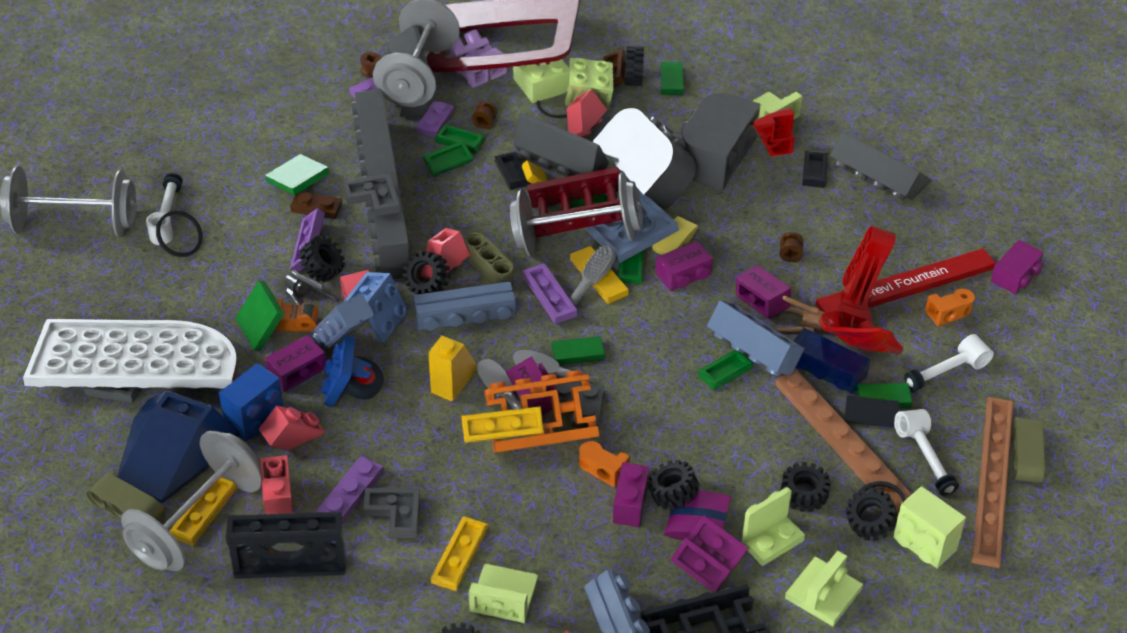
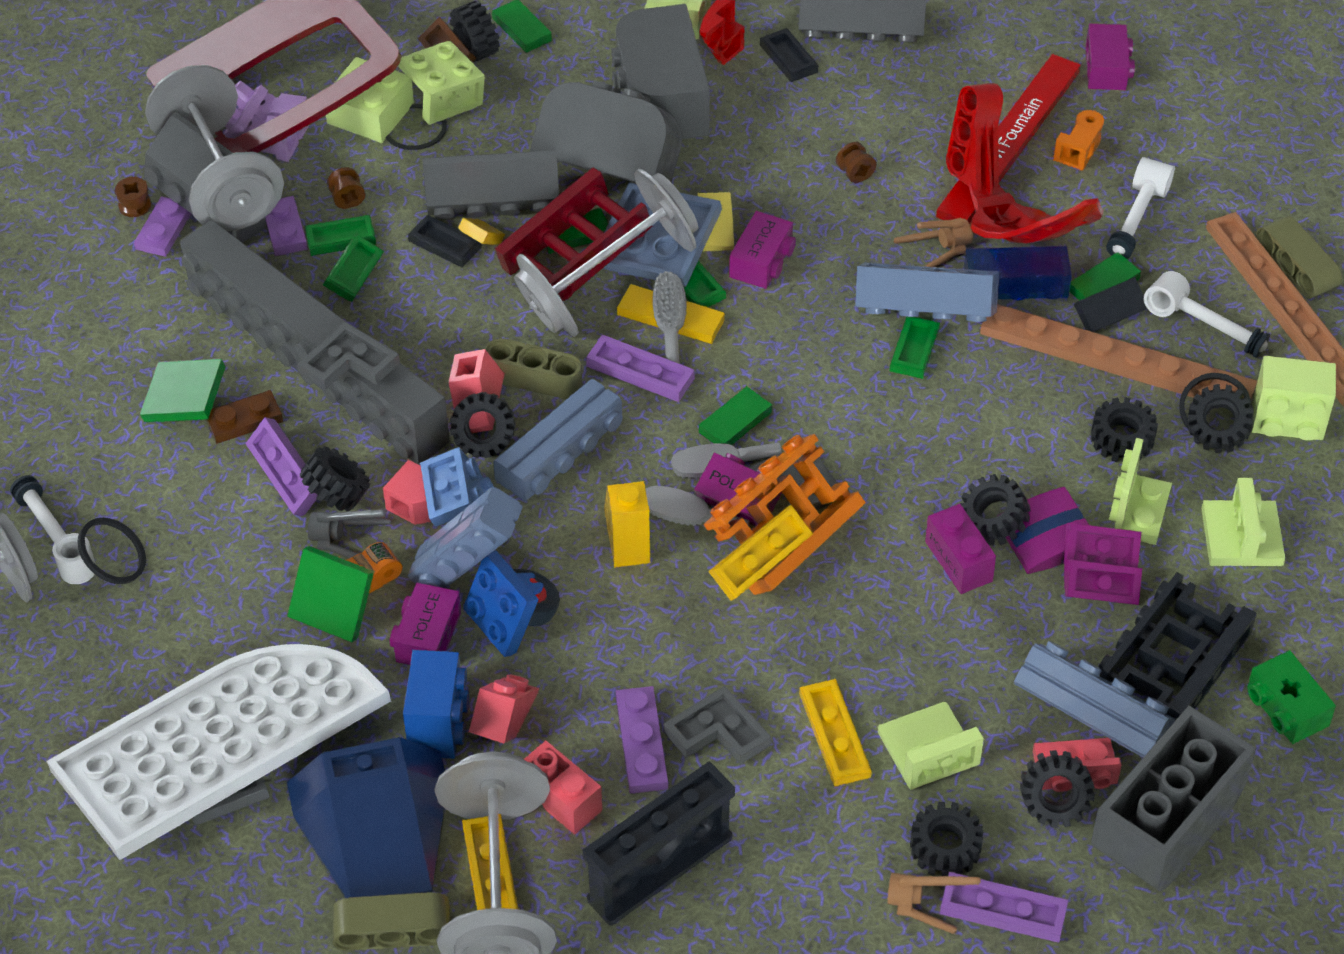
camera: 35 degrees left, 5 degrees up
(584, 114) = (471, 122): coral slope -> none
(601, 462) = (891, 532): orange leg -> none
(762, 291) = (877, 232): magenta brick -> none

